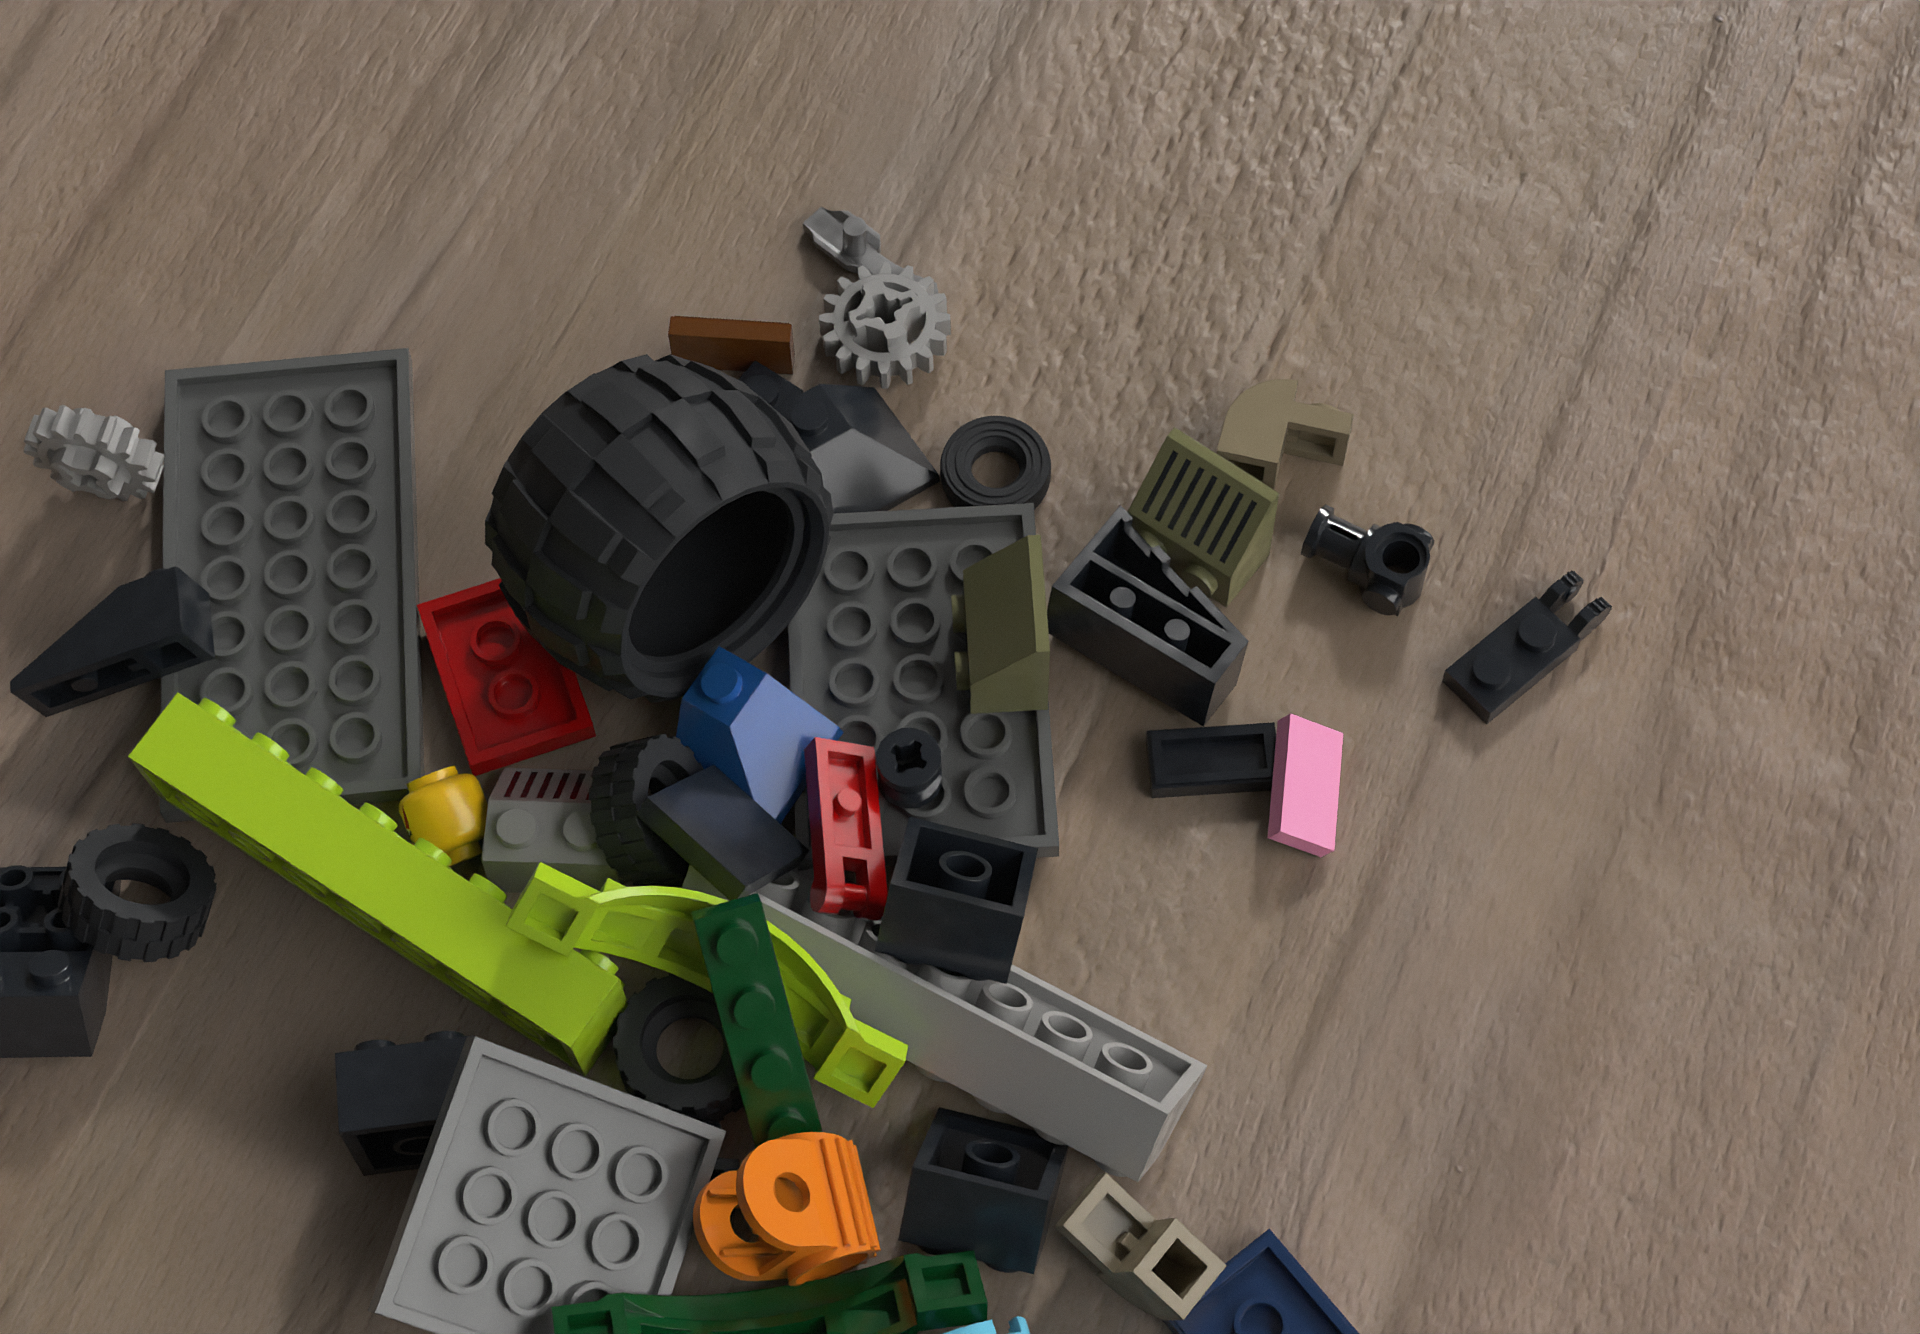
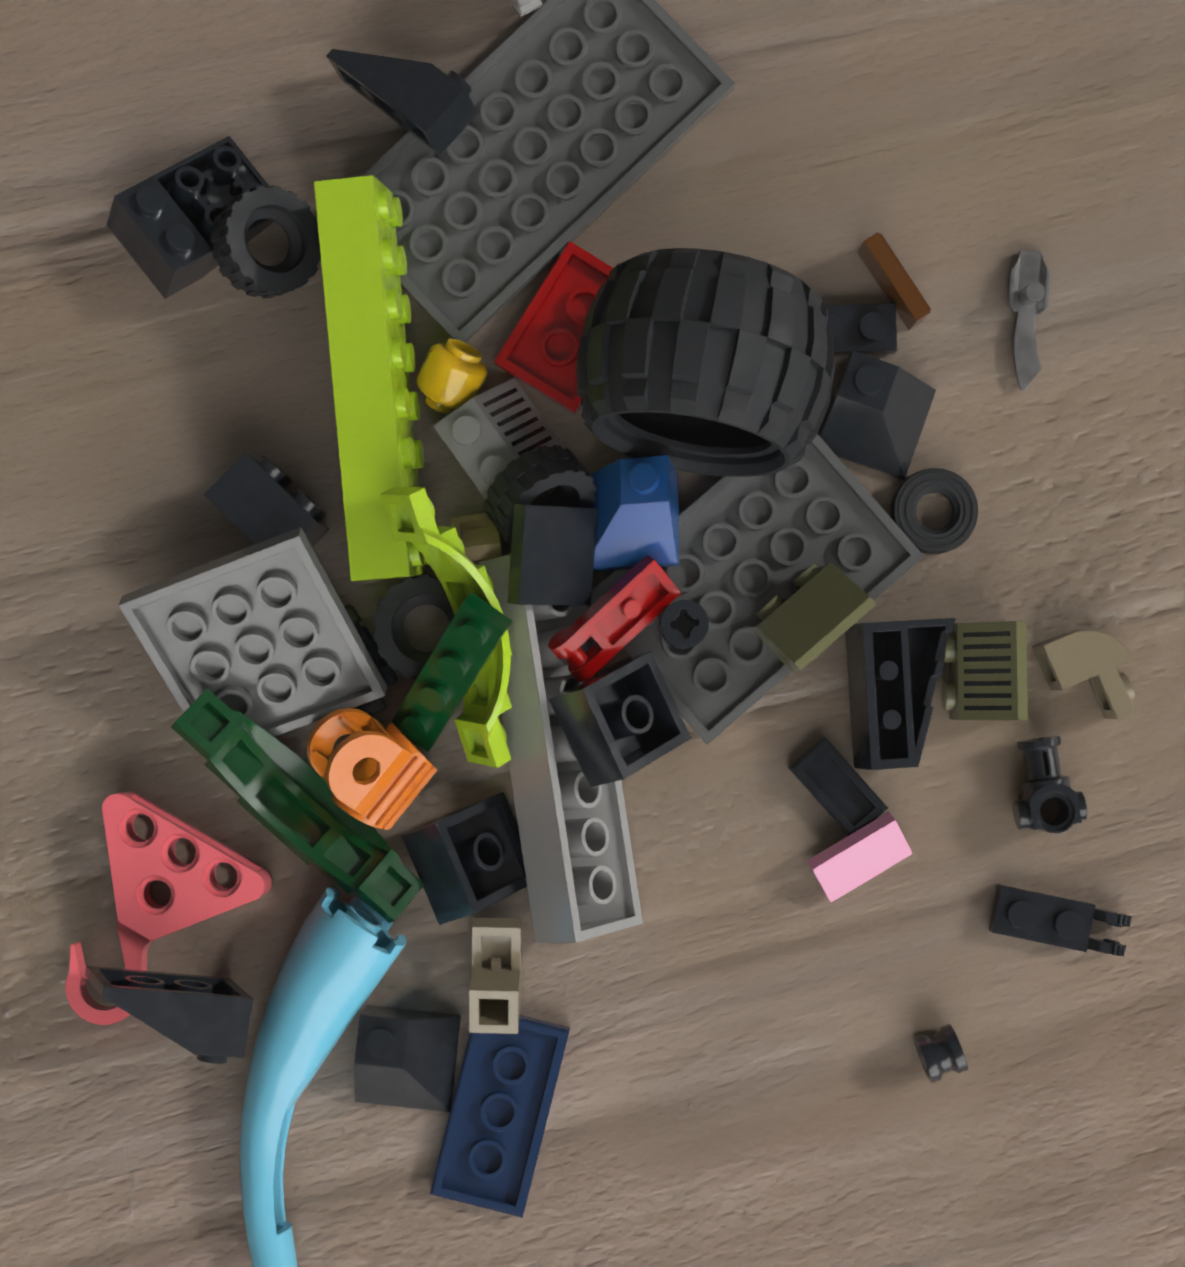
camera: 55 degrees right, 25 degrees up
(883, 321) = (999, 371): light grey gear -> none
(1588, 852) = (940, 1053): none -> black wheel

